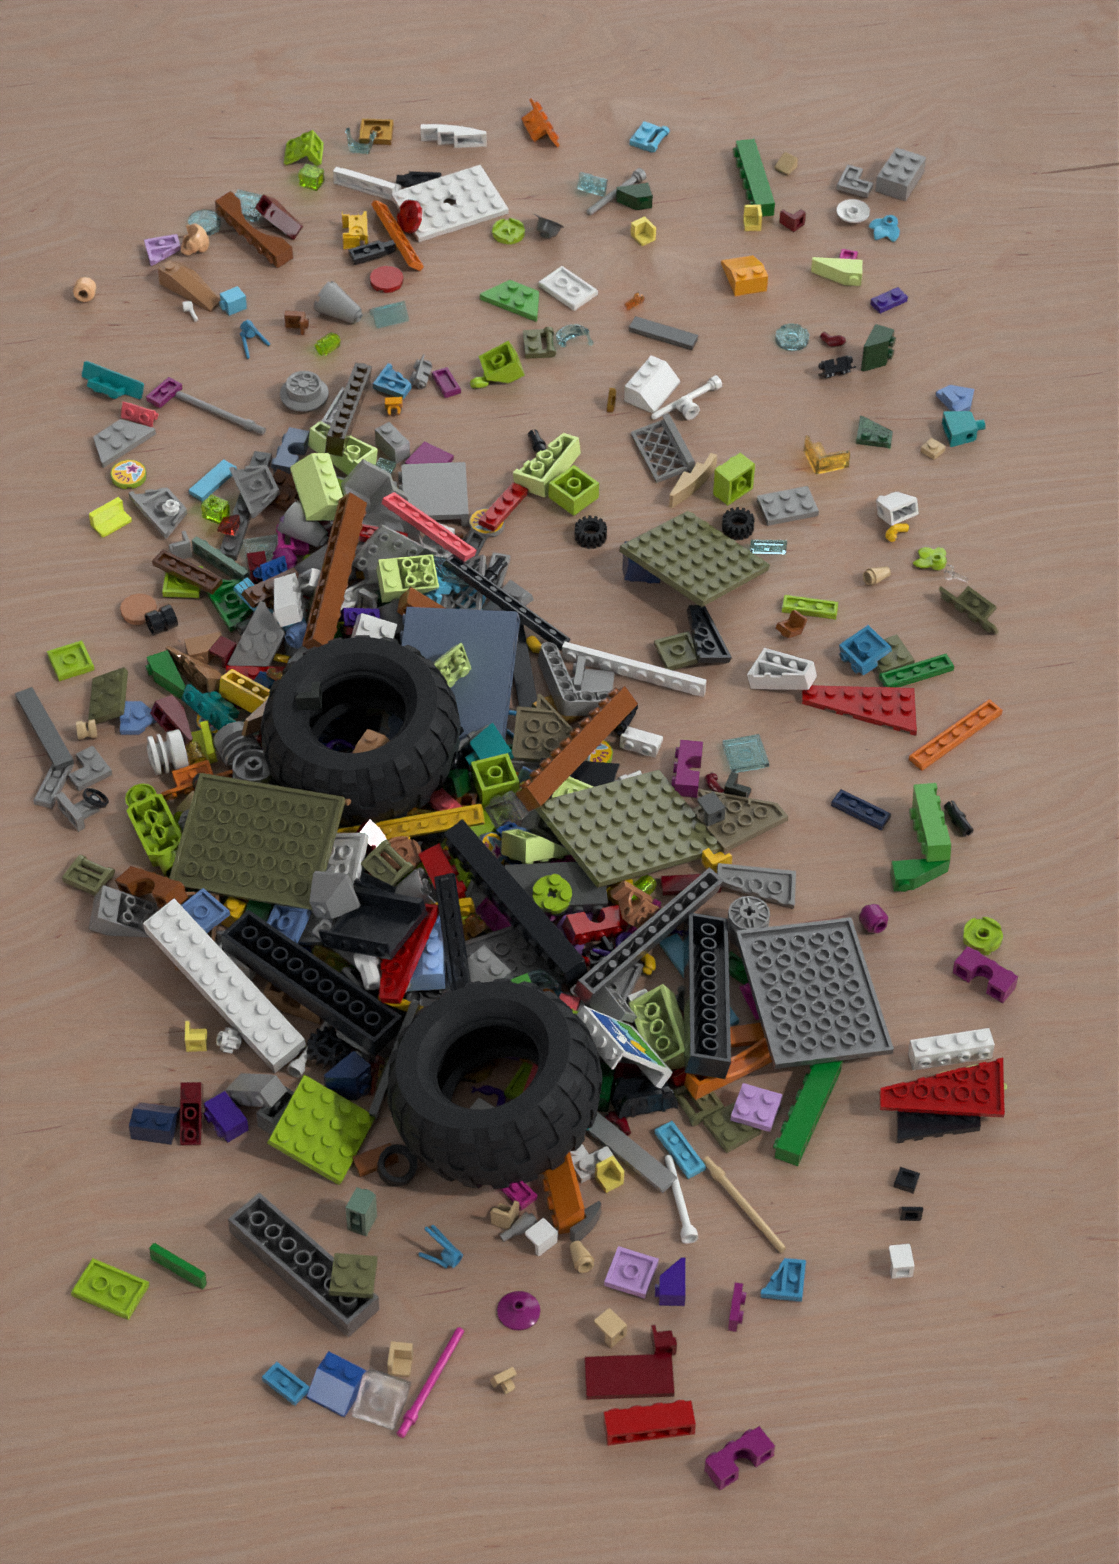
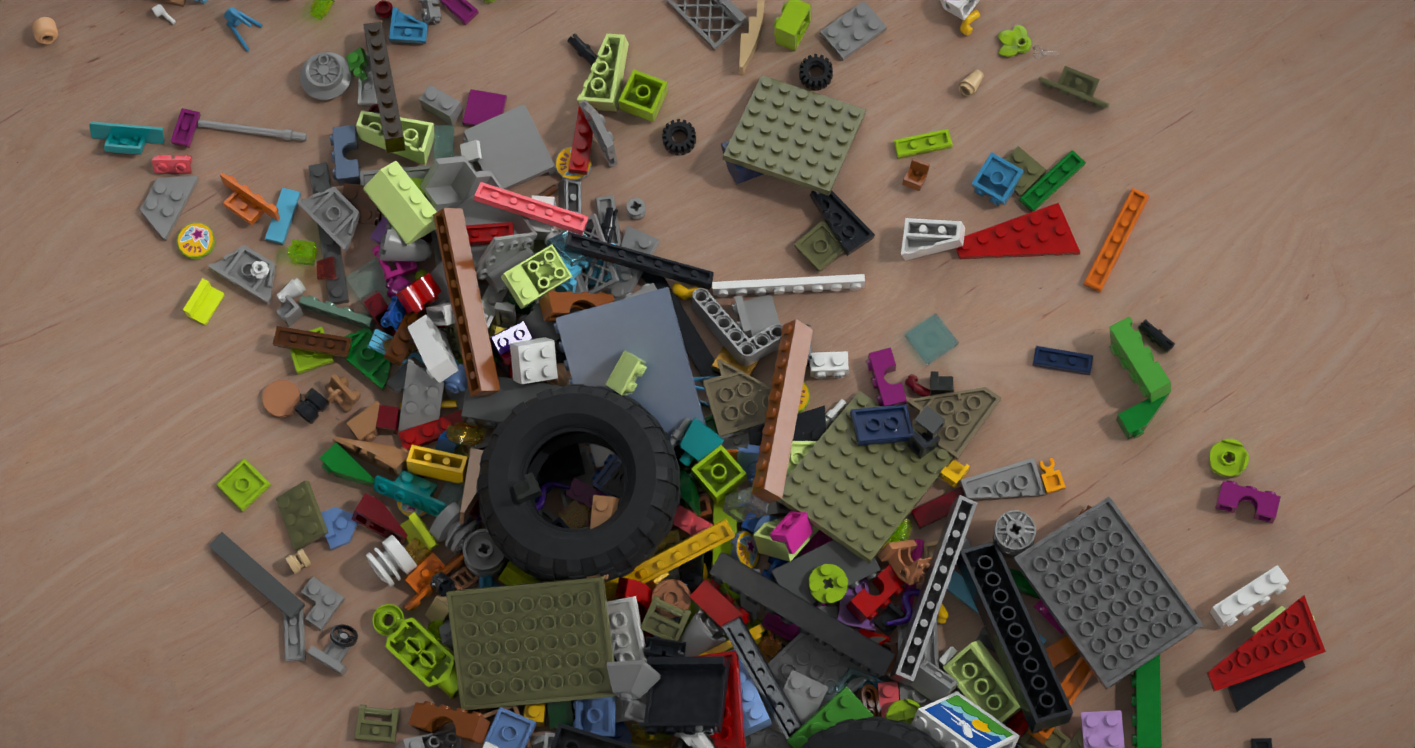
camera: 15 degrees left, 20 degrees up
(186, 458) = (245, 203): none -> orange bracket
(191, 531) = (293, 289): none -> white cone
(192, 619) = (341, 394): none -> medium nougat hips
(297, 559) = (419, 293): none -> red brick
(336, 391) = (357, 62): none -> bright green plate
(379, 363) = (383, 9): none -> dark red plate
(393, 403) = (419, 55): light orange tile -> none
(401, 478) = (471, 150): none -> white tile
(521, 501) = (603, 137): none -> light grey wing
(525, 571) = (636, 213): none -> light grey wheel
(540, 837) = (793, 530): none -> dark pink panel
(665, 796) = (881, 424): none -> dark blue tile
(696, 824) = (922, 444): none -> black panel
(768, 546) = (855, 88): clear light blue slope -> none
(805, 894) = (1052, 479): none -> light orange plate
(873, 918) = (1124, 481): magenta head -> none

